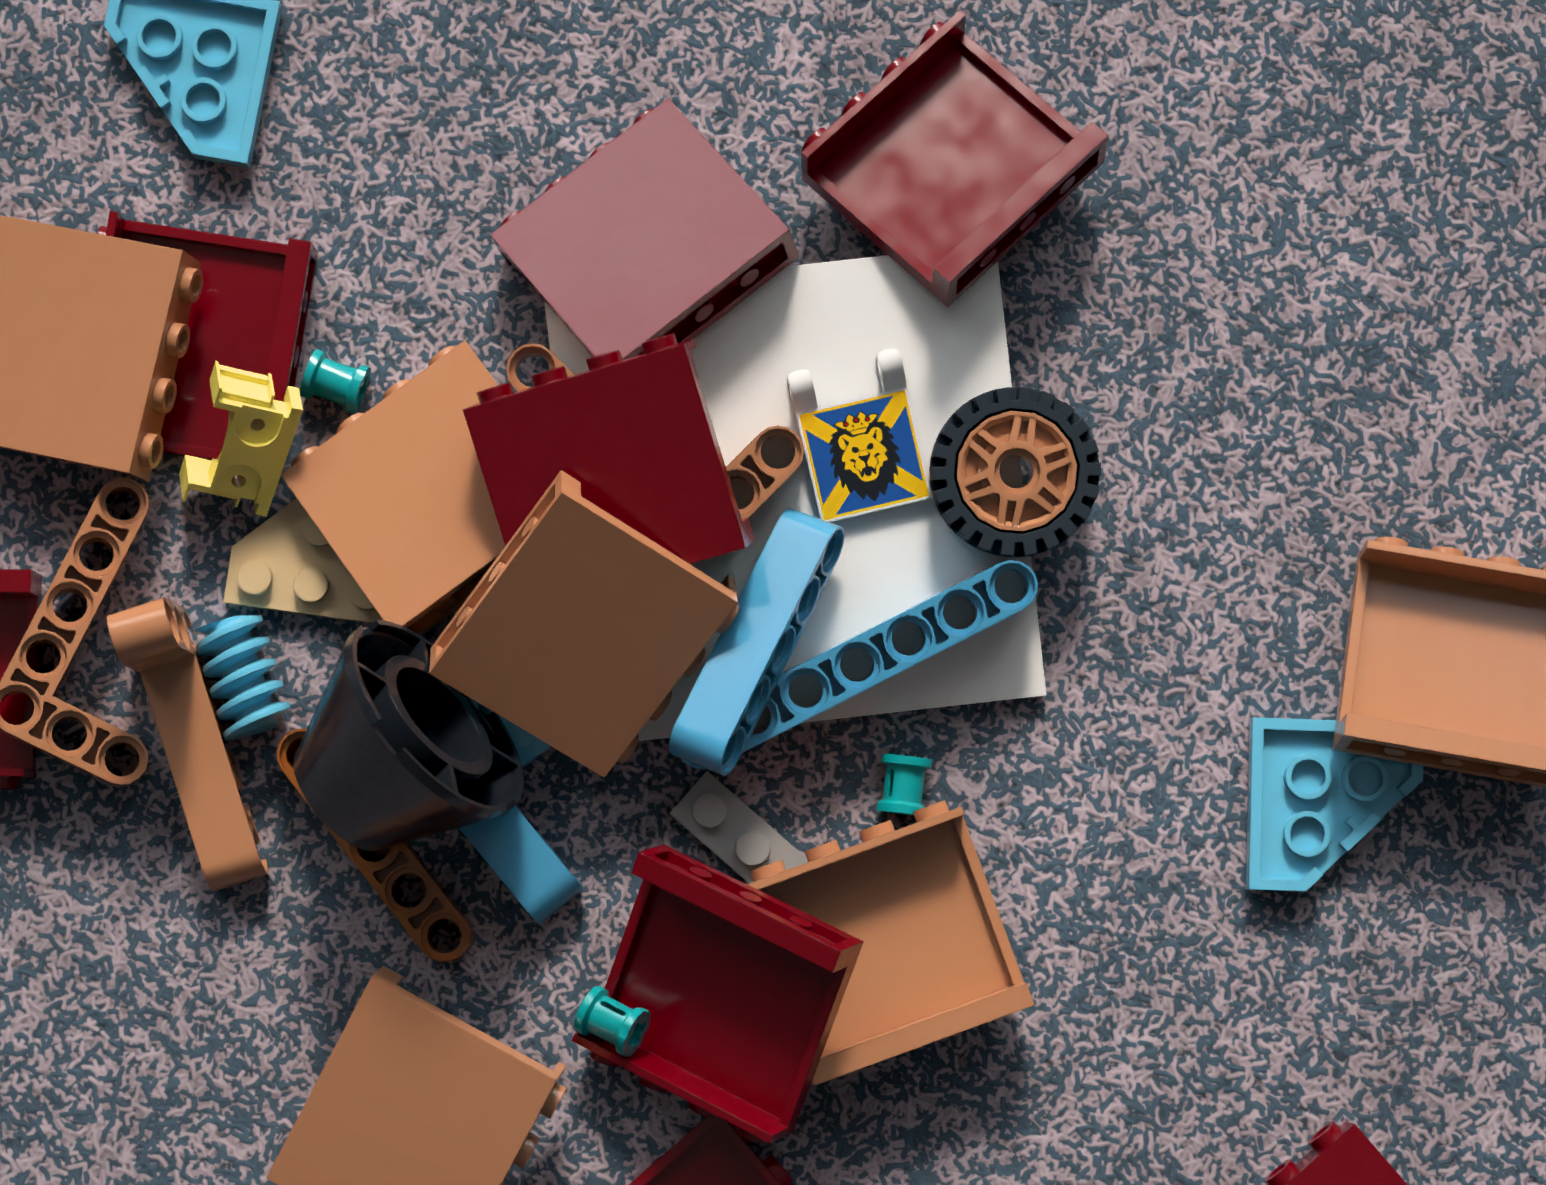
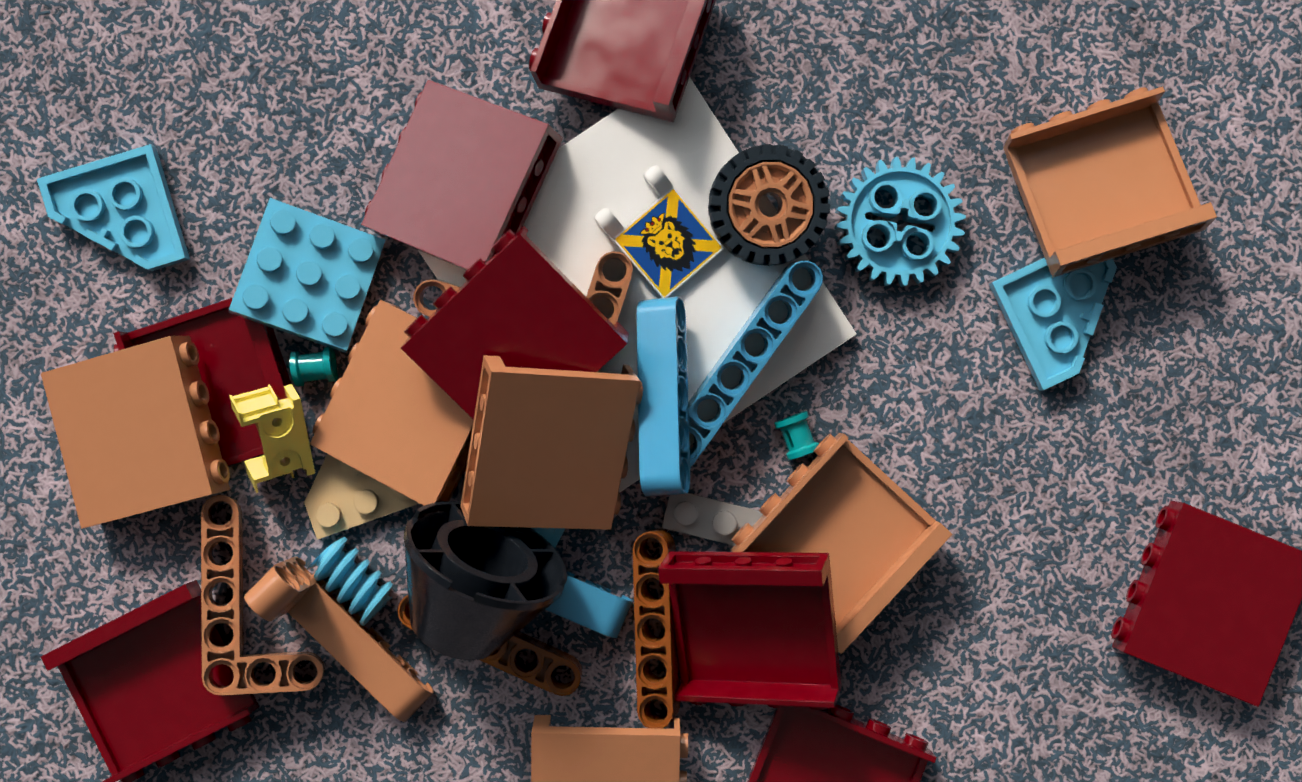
camera: 25 degrees left, 5 degrees up
(389, 264) = (307, 275): none -> medium azure plate
(571, 953) = (646, 644): none -> dark orange beam
(612, 1021) = (694, 677): teal bush -> none
(1203, 540) = (904, 186): none -> medium azure gear

